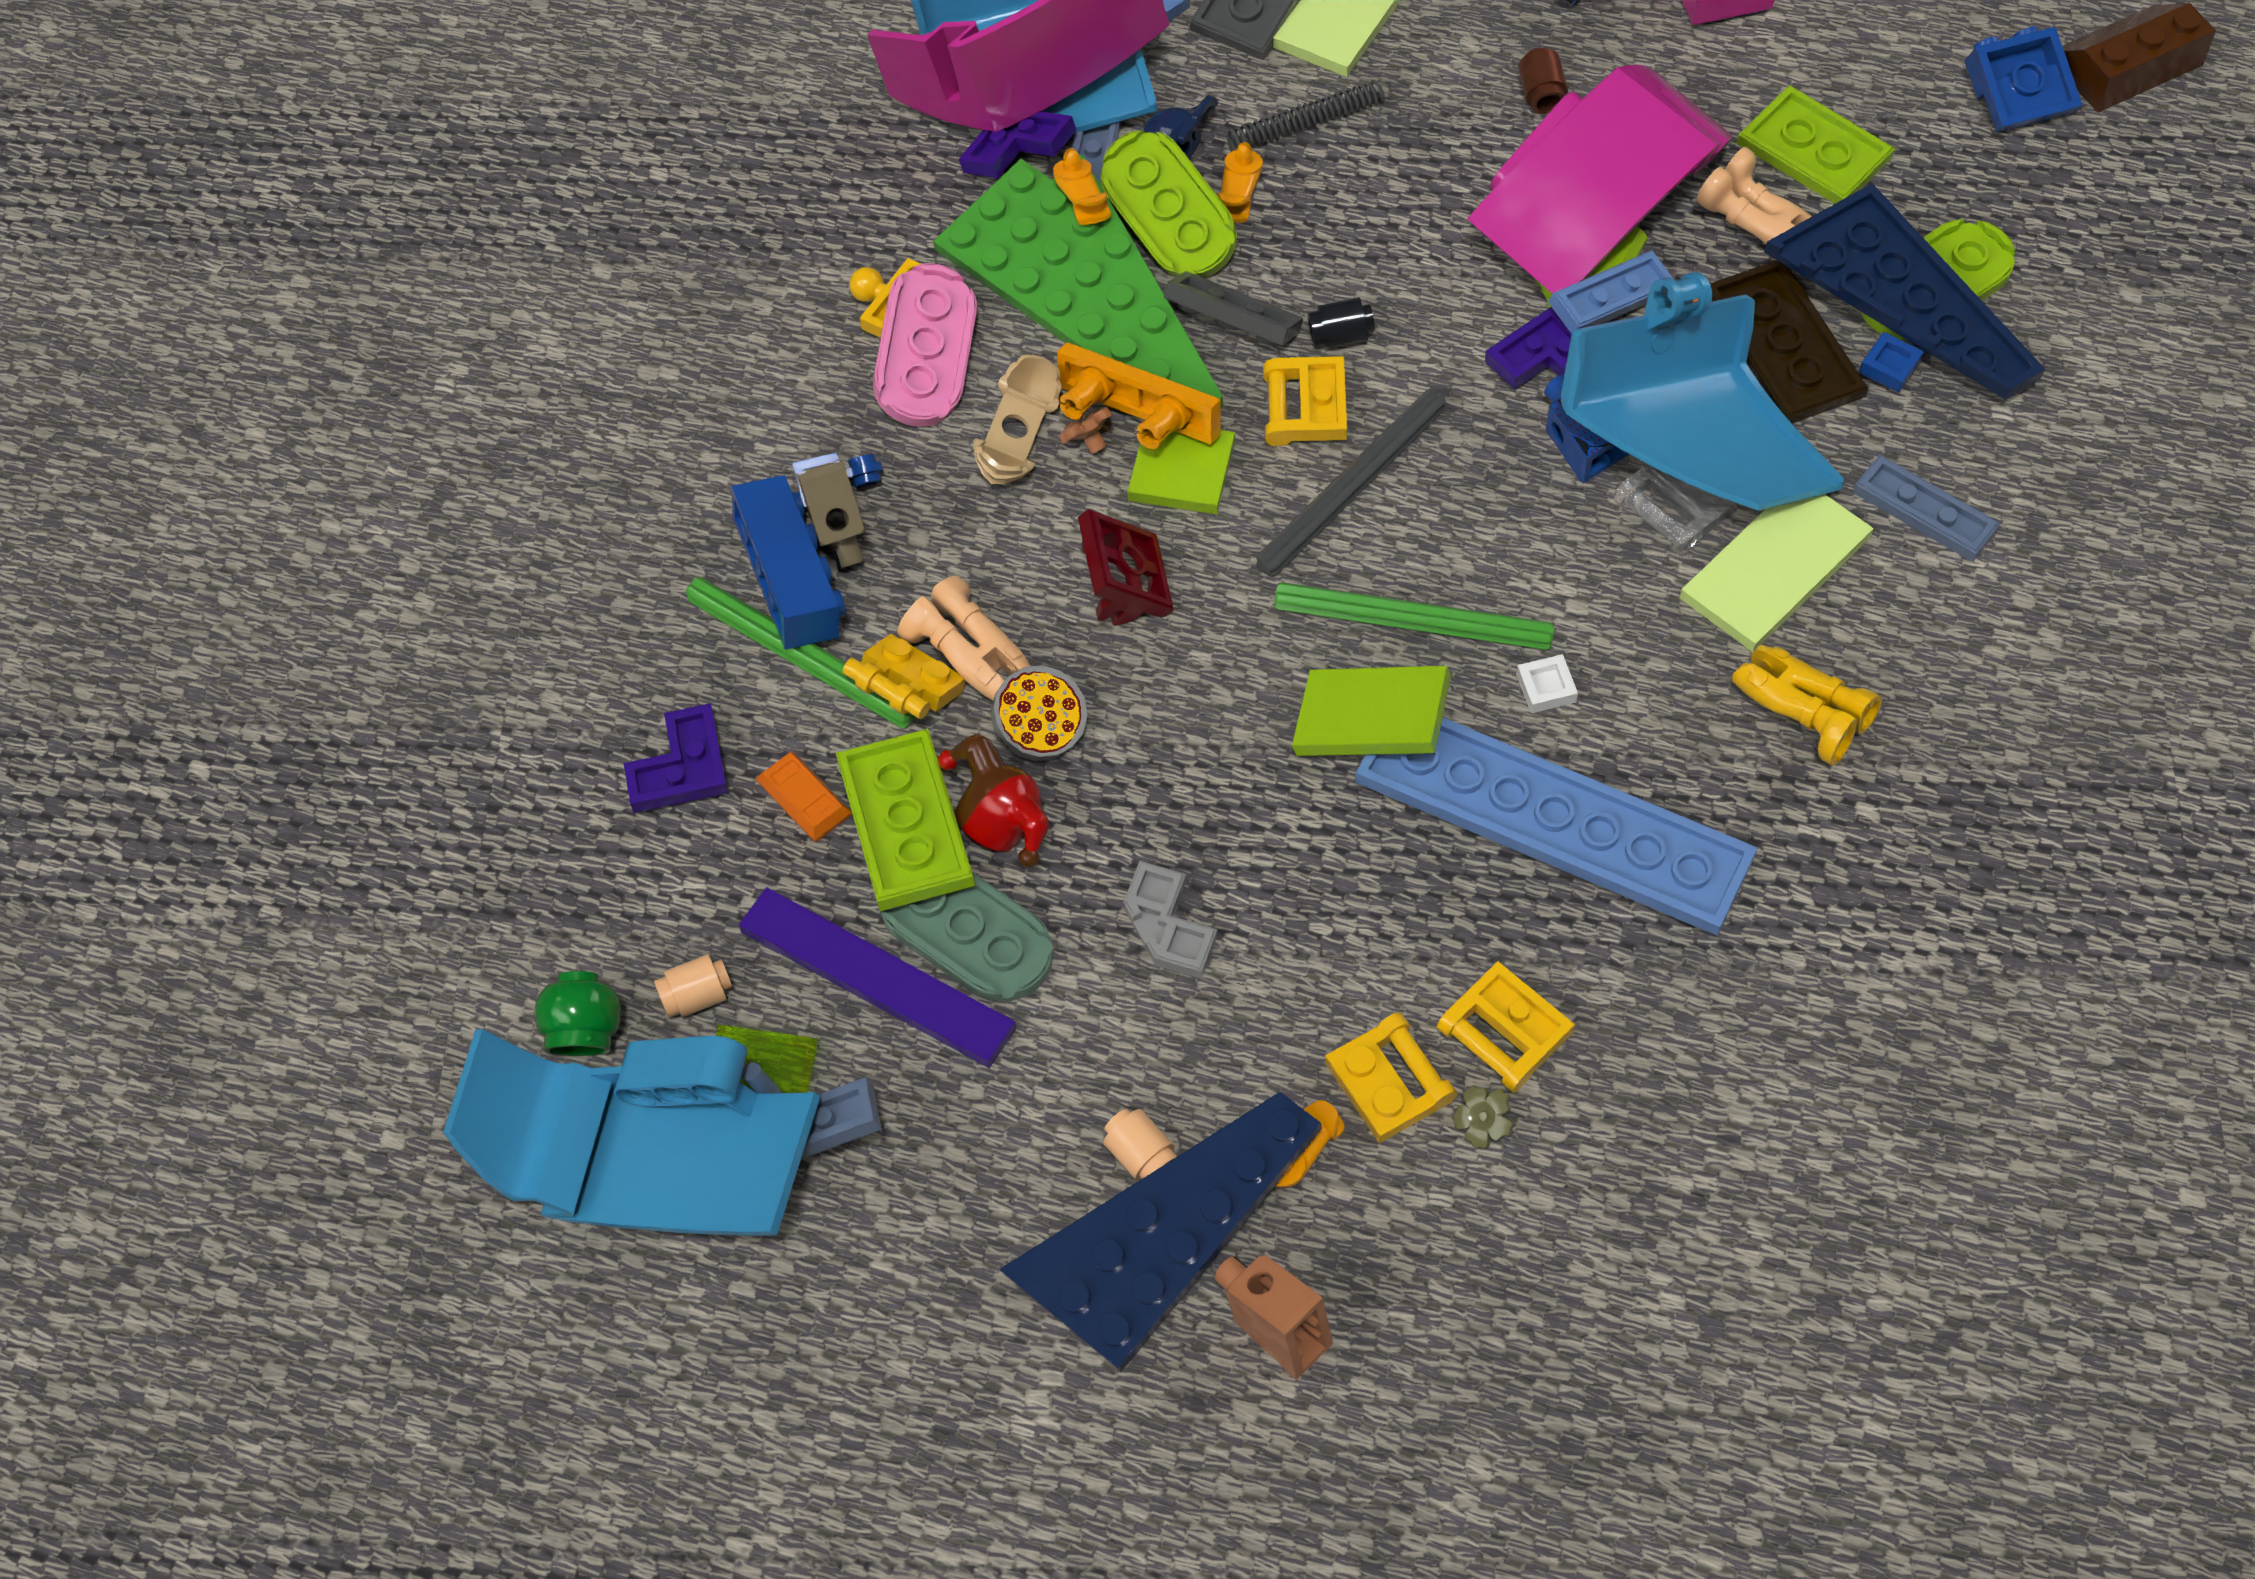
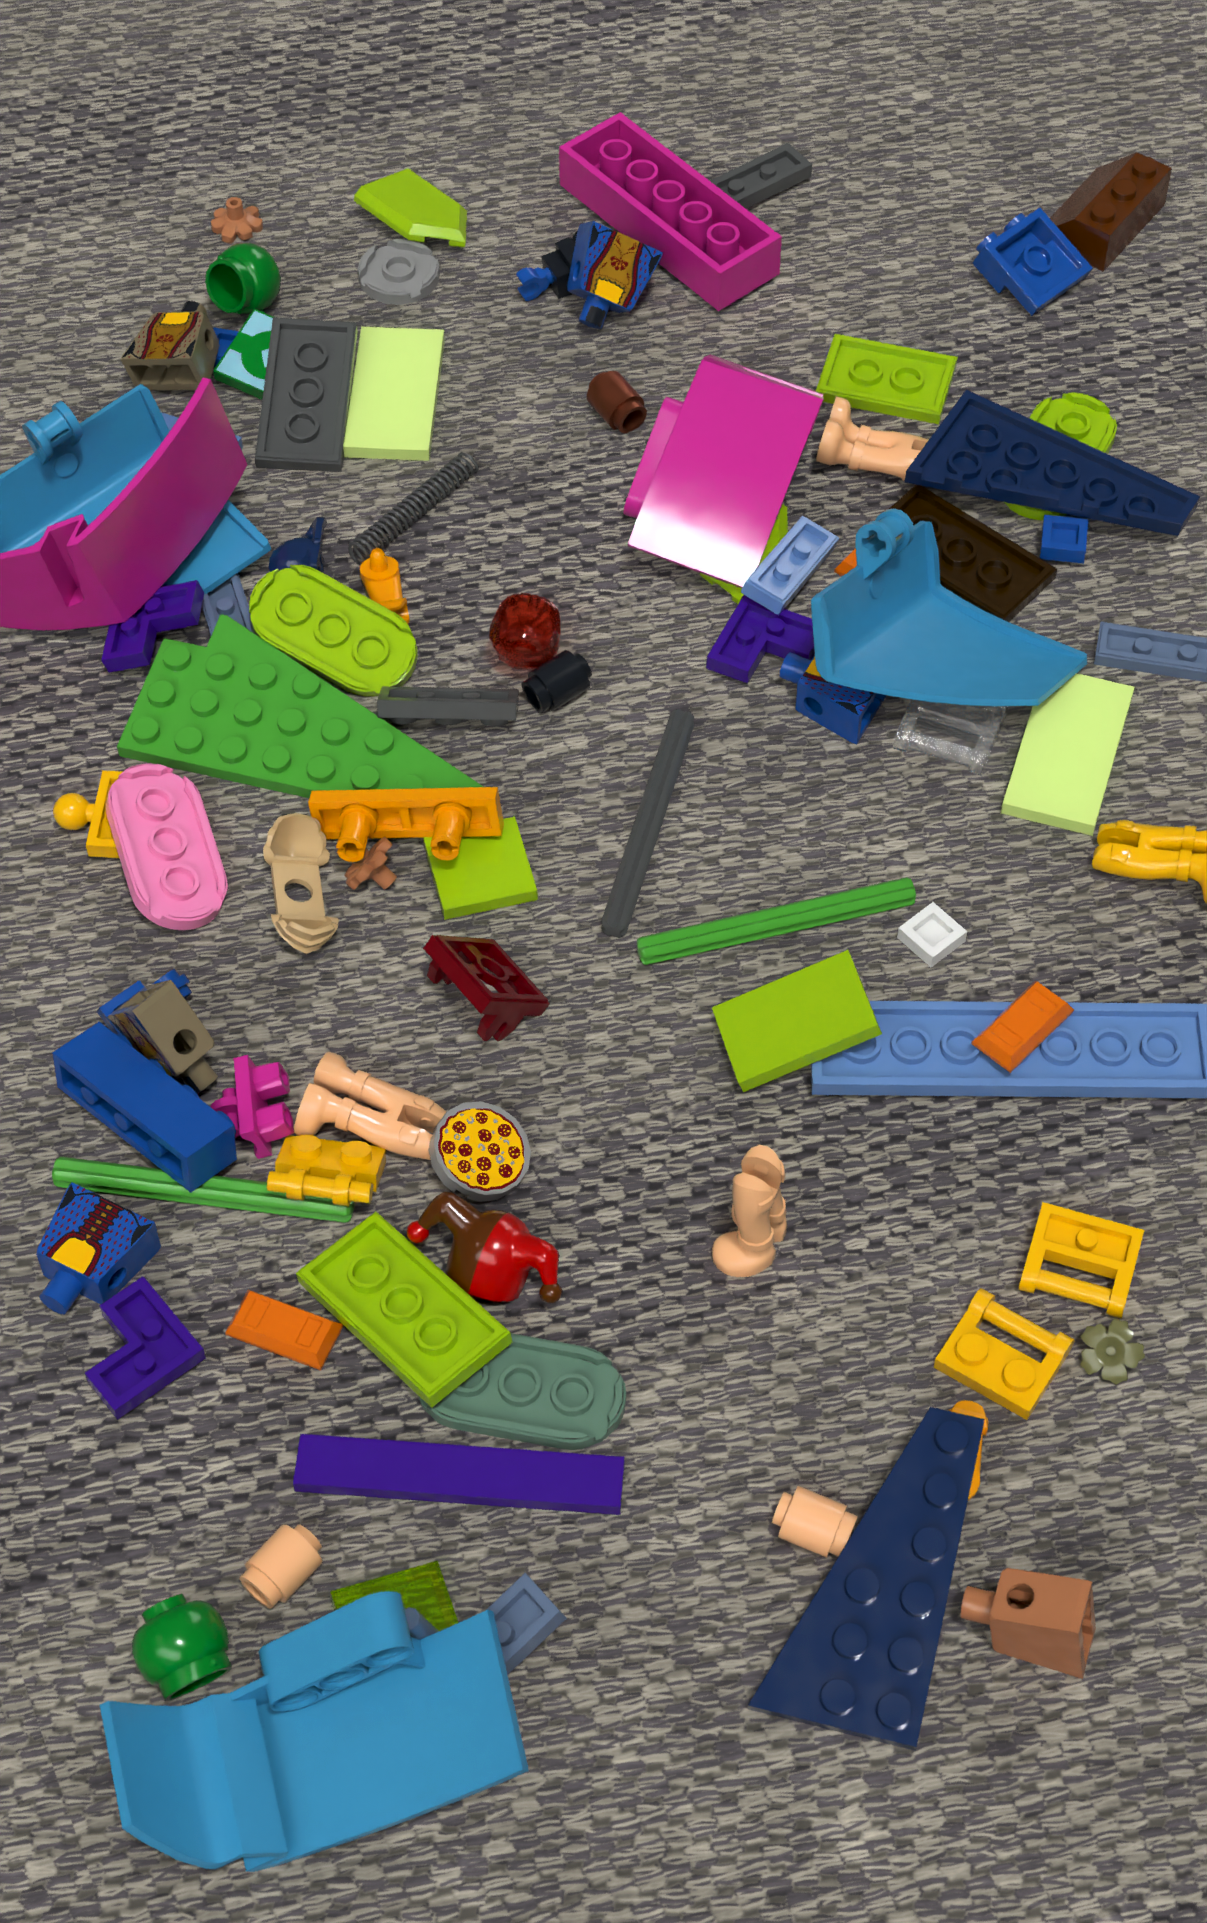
camera: 30 degrees left, 5 degrees down
(683, 664) = (92, 1249): none -> blue torso
(872, 595) = (249, 1106): none -> dark pink hips
(1077, 182) = (234, 638): light orange piece -> none
(1168, 939) = (723, 1315): light grey tile -> none
(1233, 864) = (757, 1212): none -> light nougat piece
(1321, 399) = (576, 754): yellow plate -> none
(1334, 266) = (525, 631): none -> clear red hair
(1572, 798) = (1022, 1026): none -> orange tile

